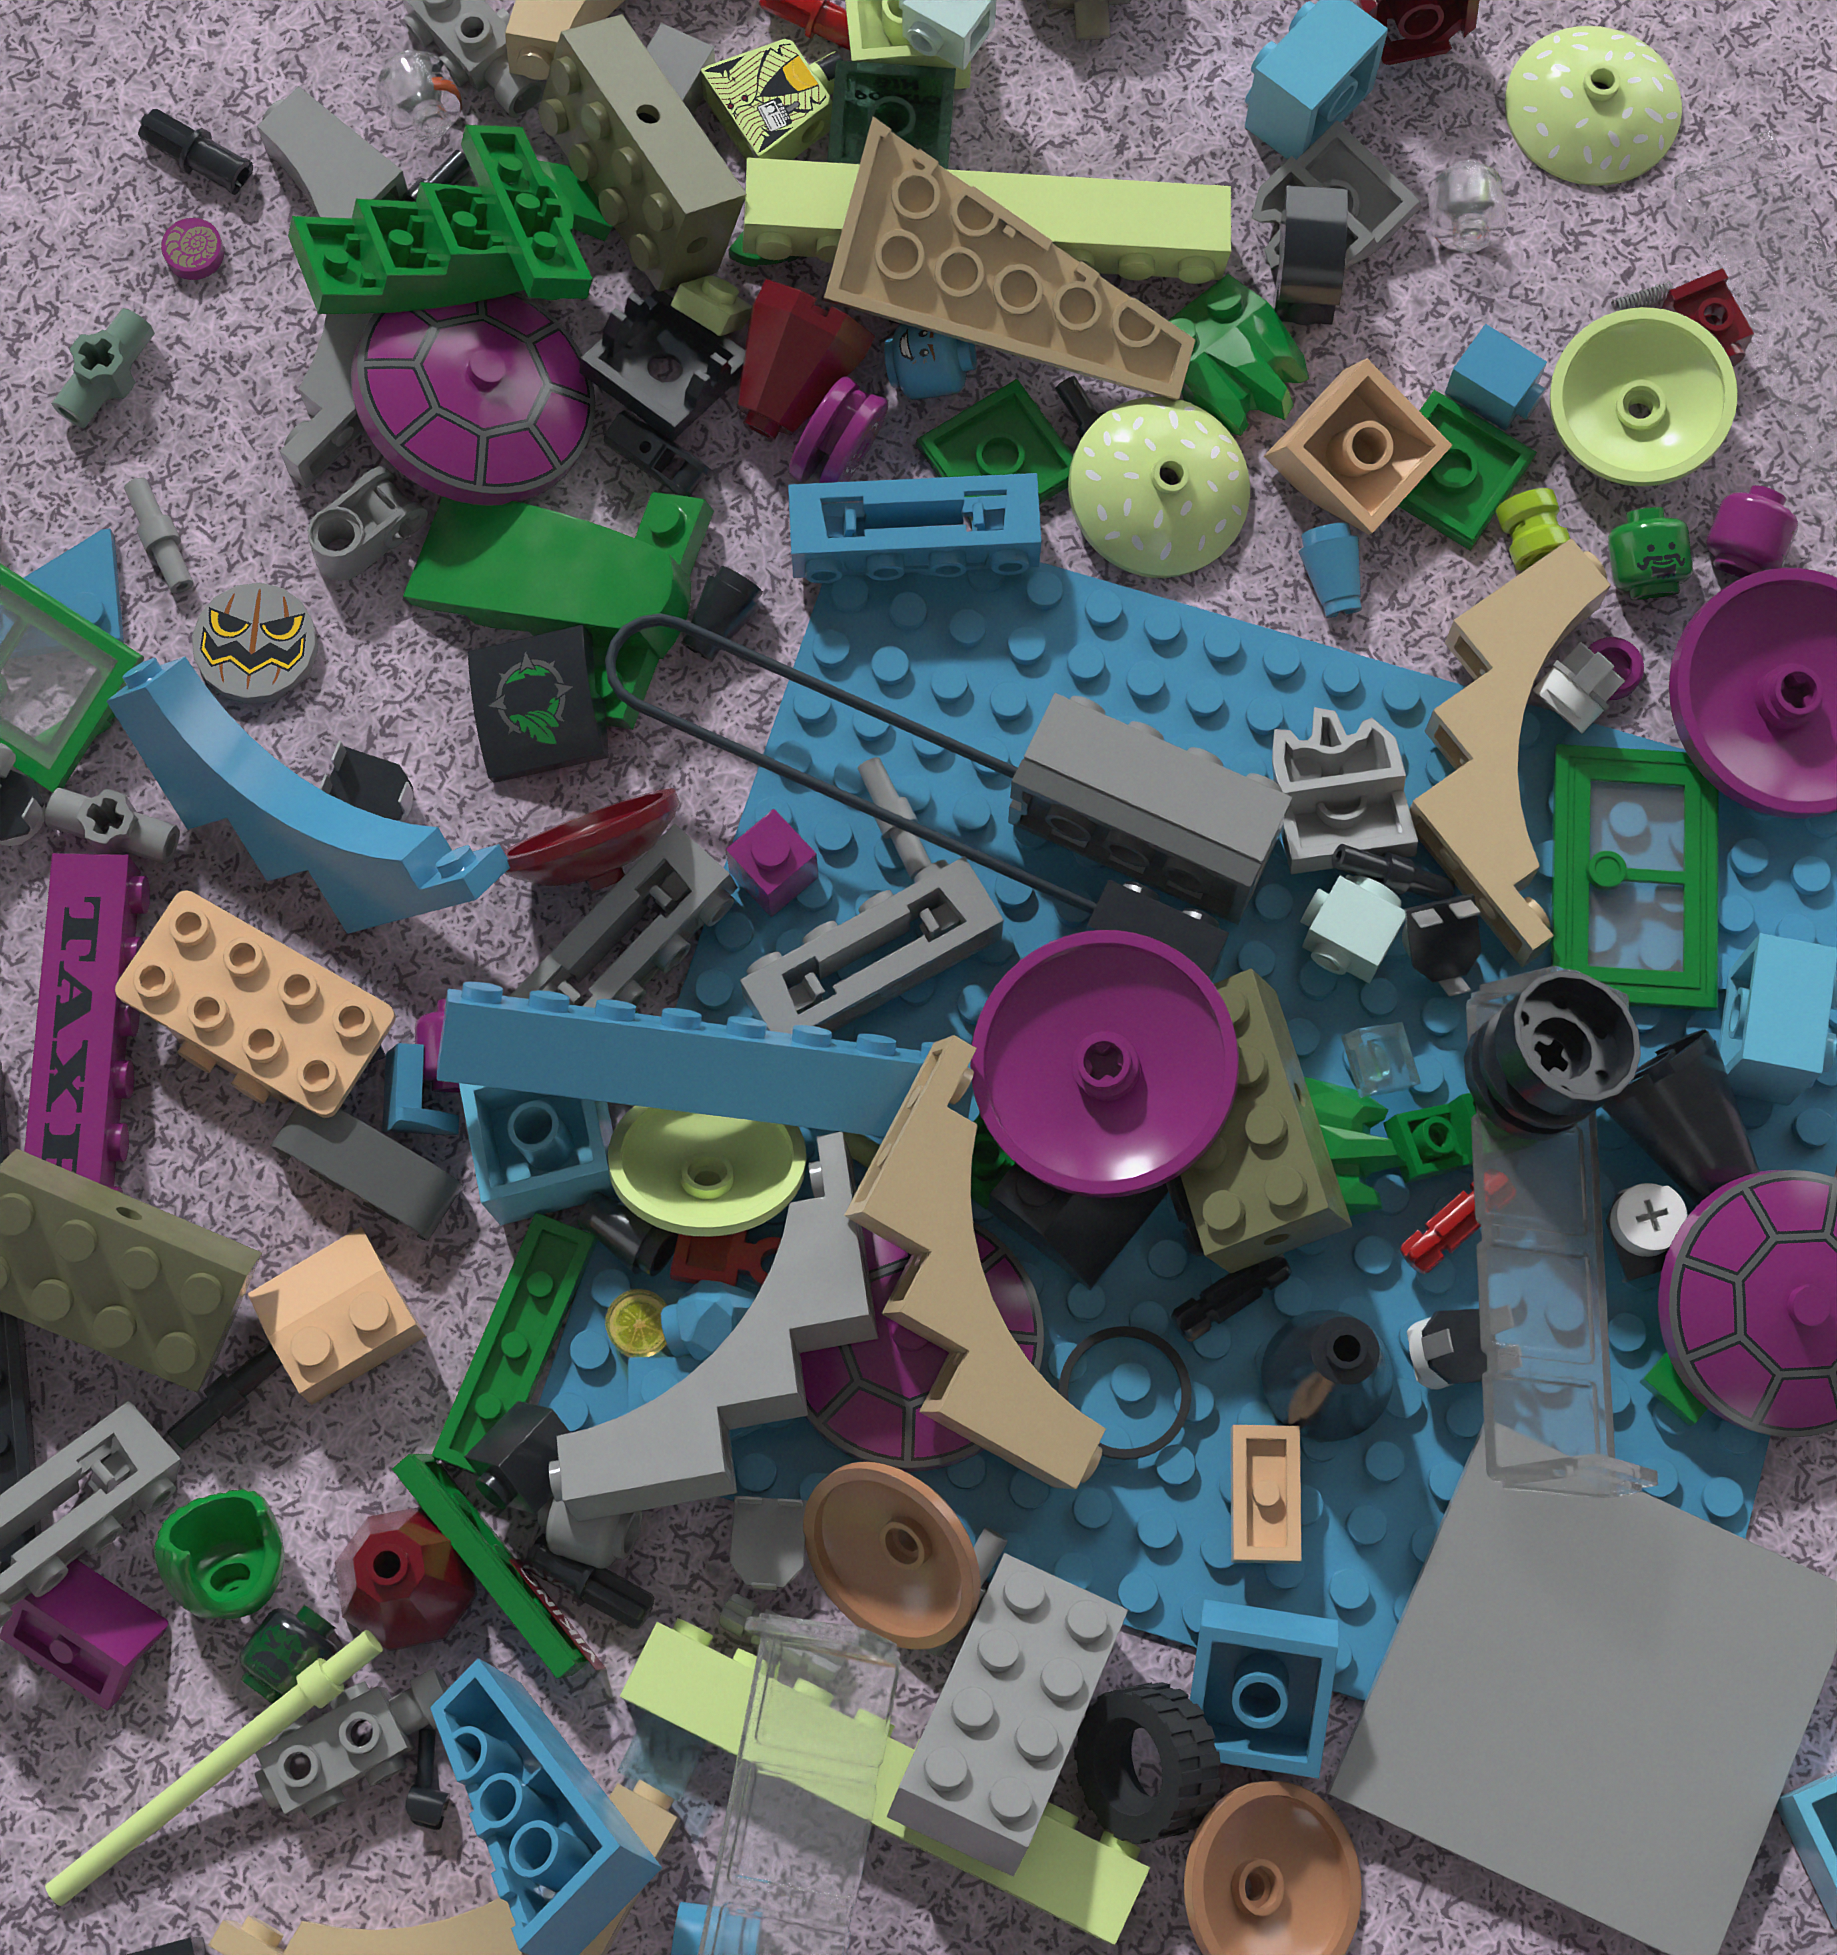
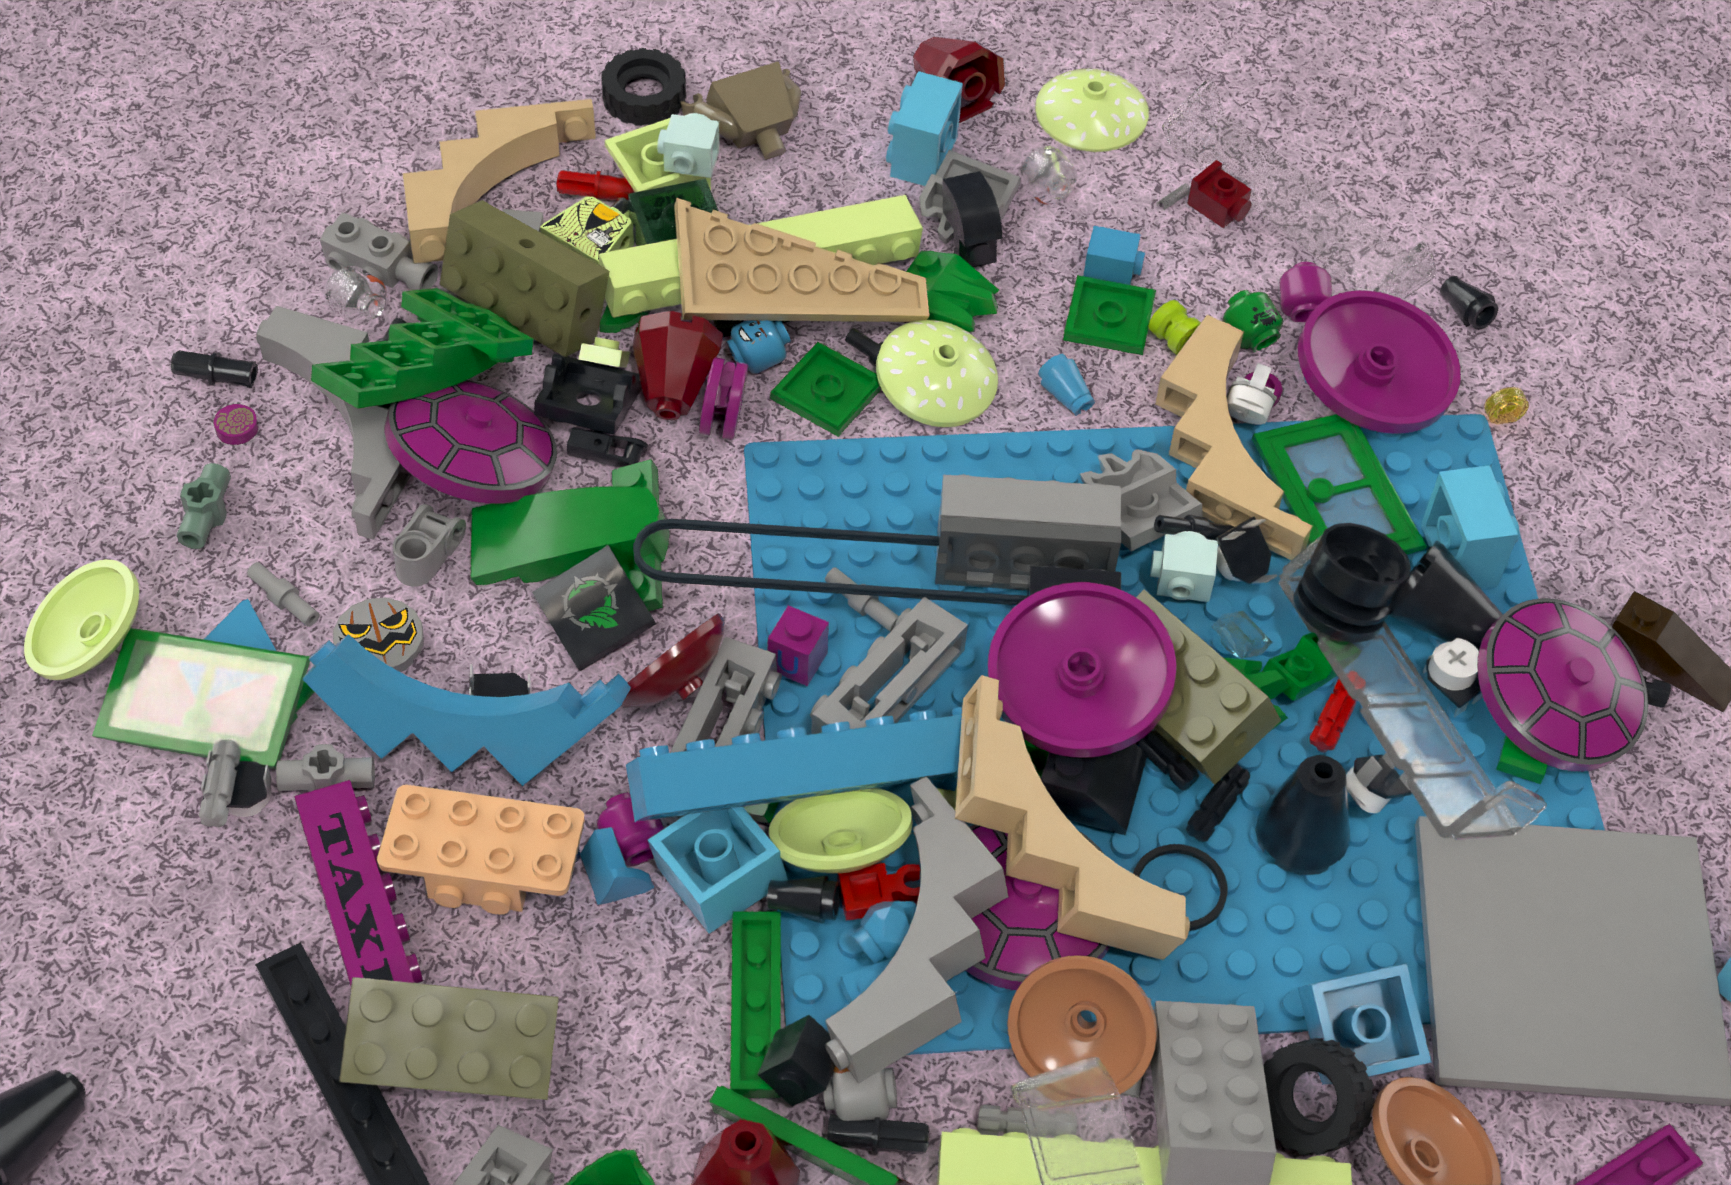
camera: 25 degrees left, 20 degrees down
(225, 1397) = (564, 1104): black bar -> none
(335, 1316) = (622, 1026): light nougat slope -> none
(370, 1166) = (601, 922): dark grey beam -> none
(635, 1323) = (835, 955): clear yellow tile -> none
(723, 608) = (690, 506): black cone -> none
(767, 1540) = (988, 1060): light grey piece -> none
(1001, 539) = (796, 432): dark azure brick -> none
(1265, 1494) = (1303, 910): light nougat plate -> none
(1358, 448) = (1049, 312): light nougat slope -> none
(1651, 361) = (1209, 222): yellowish green dish -> none

